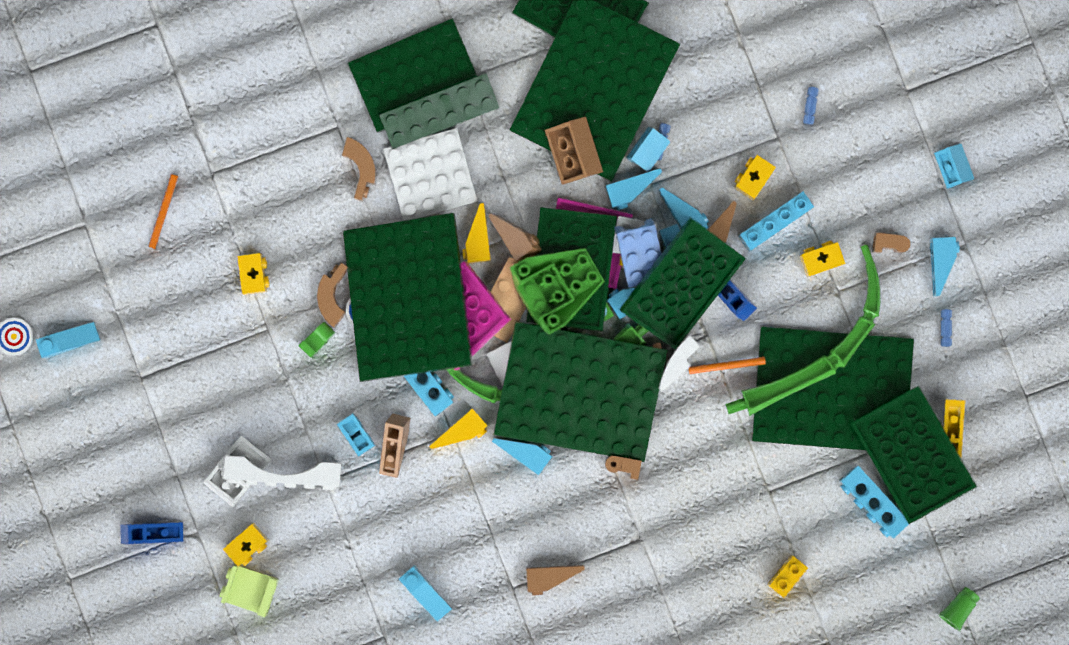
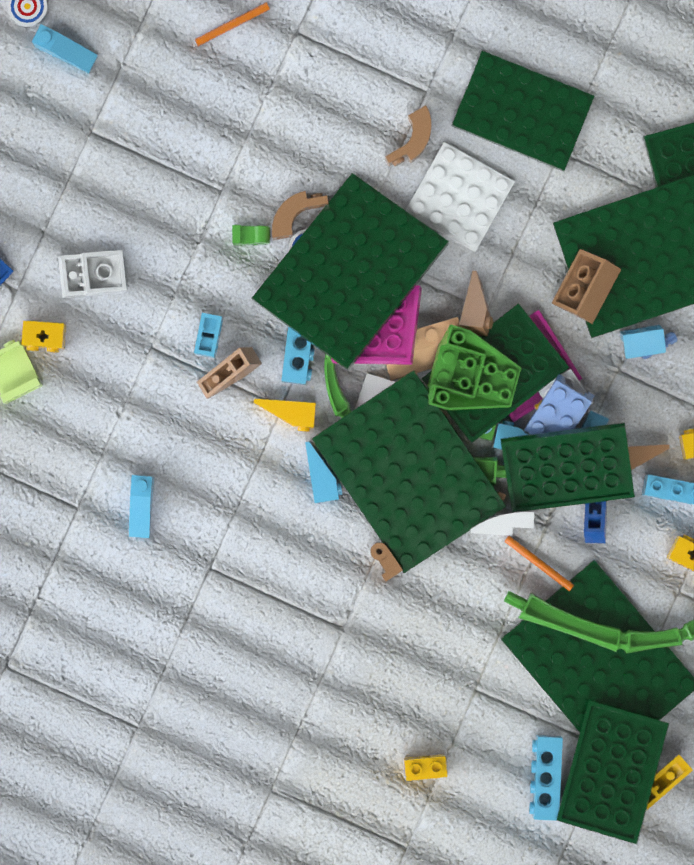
camera: 35 degrees right, 0 degrees up
(248, 283) = (254, 126): yellow brick -> none
(321, 474) = (152, 338): white arch -> none
(439, 110) = (515, 154): dark green plate -> none
(477, 243) = (444, 282): yellow slope -> none
(546, 578) = (243, 586): medium nougat slope -> none
(628, 190) = (595, 356): medium azure slope -> none
(681, 210) = (622, 411): medium azure slope -> none

